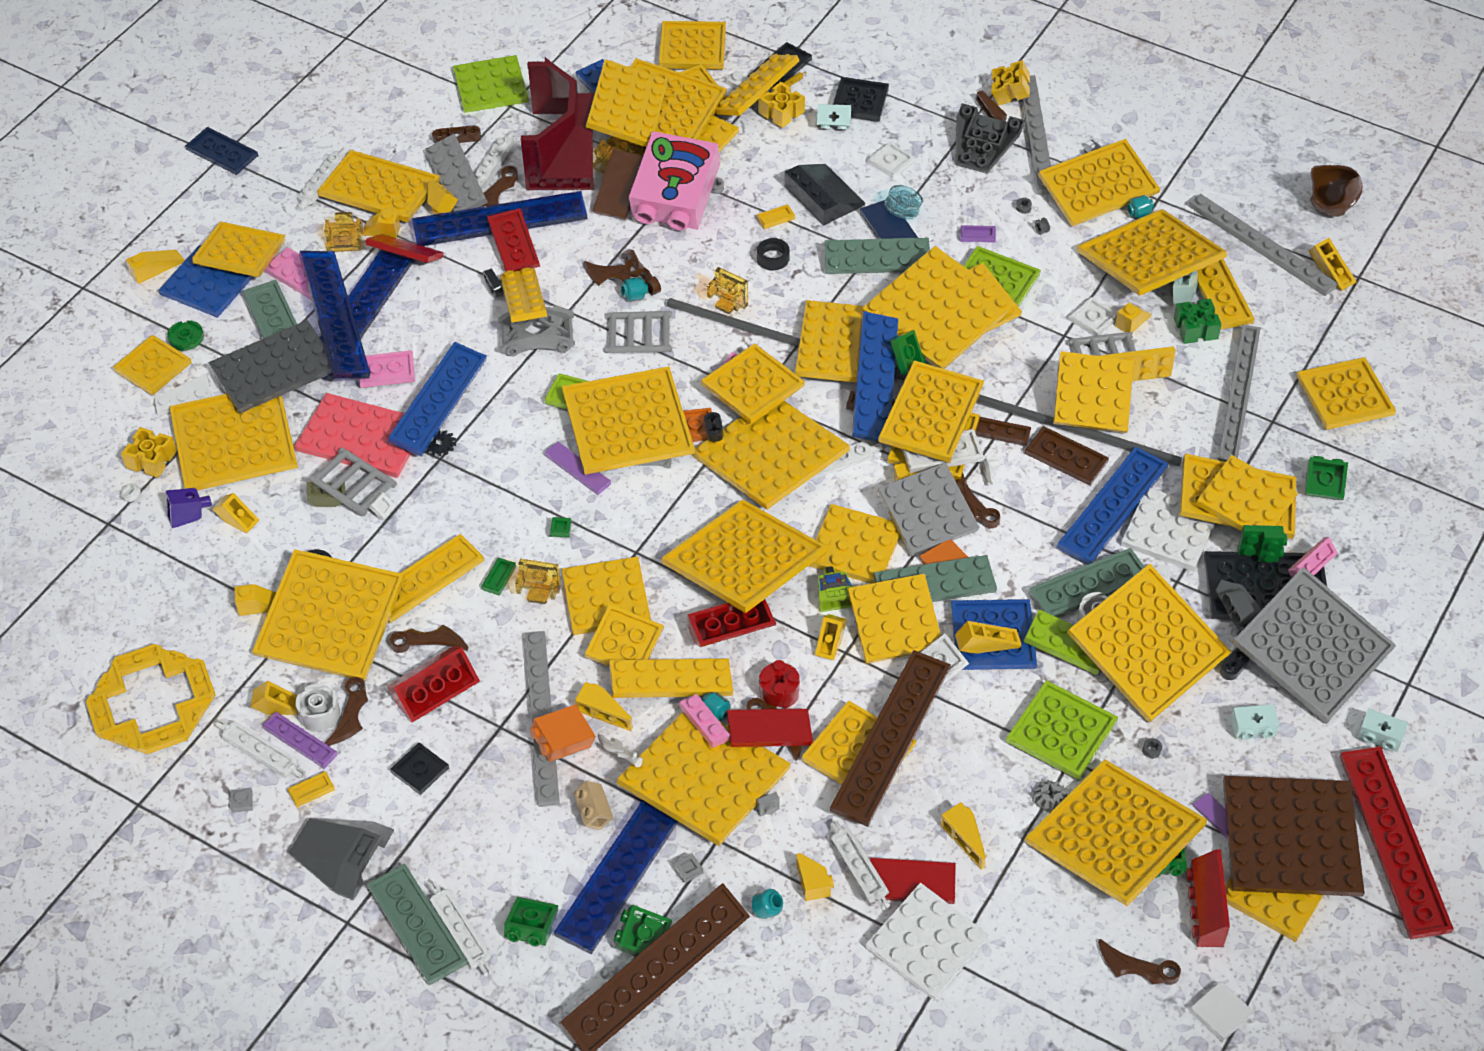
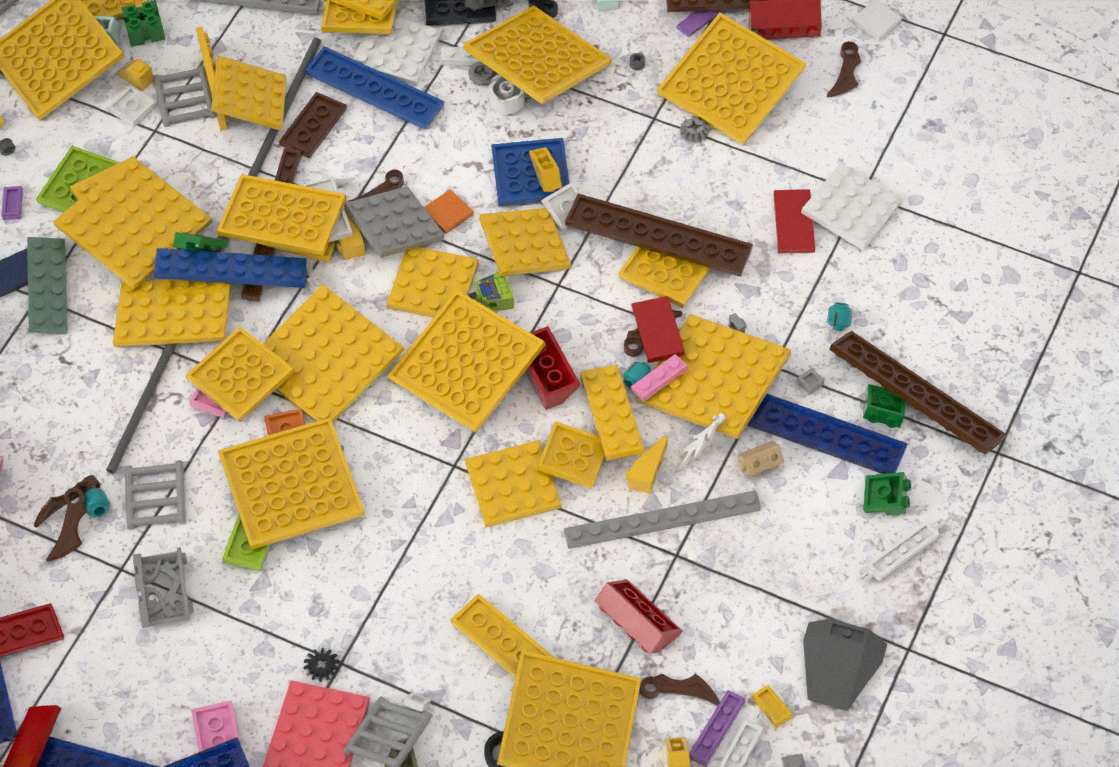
camera: 95 degrees left, 5 degrees up
(318, 707) = (684, 710): white brick -> none
(417, 924) = (903, 586): sand green plate -> none
(419, 768) = (734, 615): black tile -> none
(437, 399) = (266, 668): blue plate -> none
(441, 636) = (577, 622): reddish brown piece -> none
(493, 282) = (83, 645): black beam -> none
(498, 576) = (497, 581): green tile -> none
(523, 295) = (117, 599): yellow plate -> none
(539, 578) = (511, 534): clear yellow panel -> none
(560, 527) = (432, 531): green plate -> none
(562, 733) = (688, 490): orange brick -> none
(572, 464) = (349, 530): medium lavender tile -> none
(710, 427) = (297, 405): black beam -> none
(731, 290) = (101, 408): clear yellow panel -> none
(773, 263) = (37, 367): black tyre -> none
(779, 684) = (608, 326): red brick -> none
(813, 878) = (807, 288): yellow slope -> none
(830, 636) = (546, 291): yellow slope -> none
(860, 865) = (790, 253): white plate -> none
(950, 578) = (469, 201): sand green plate -> none
(963, 829) = (742, 183): yellow slope -> none
(1051, 636) = (534, 120): lime plate -> none
(1062, 729) = (627, 121): lime plate -> none
(1066, 591) = (468, 104): sand green plate -> none

